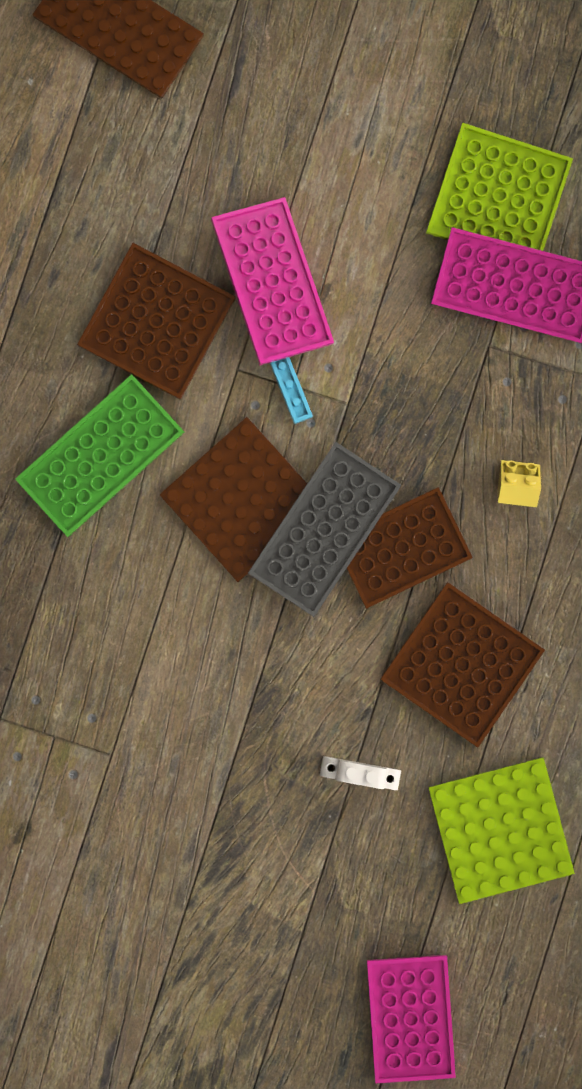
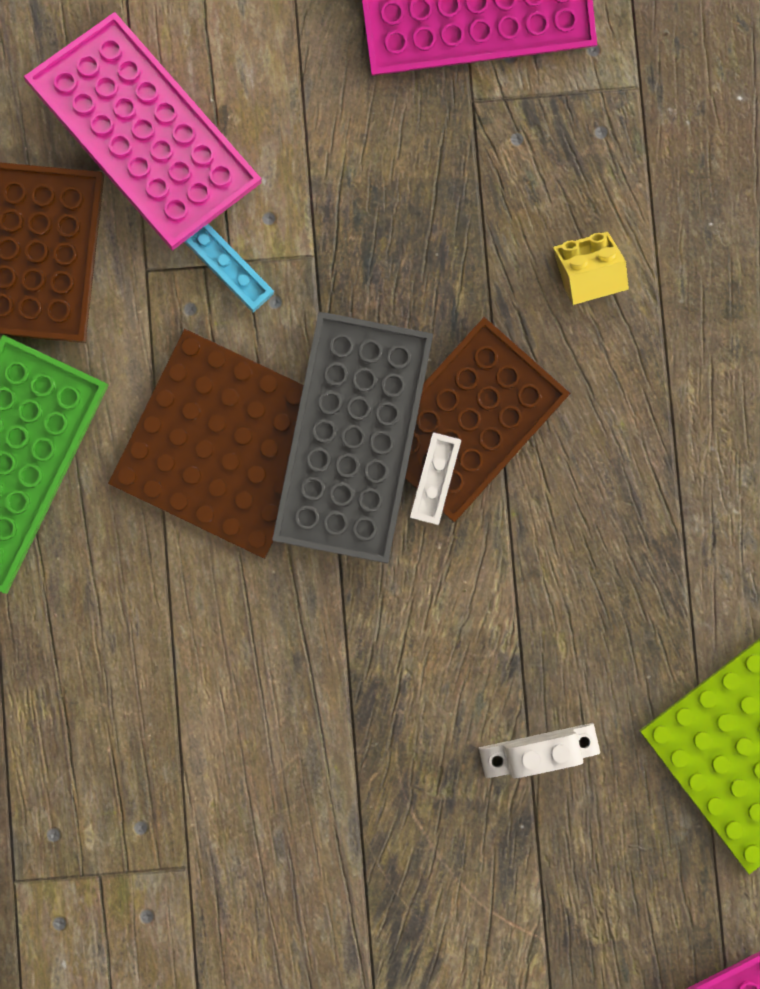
camera: 20 degrees left, 0 degrees up
(365, 576) = (435, 478): none -> white plate
(462, 664) = (617, 544): reddish brown plate -> none

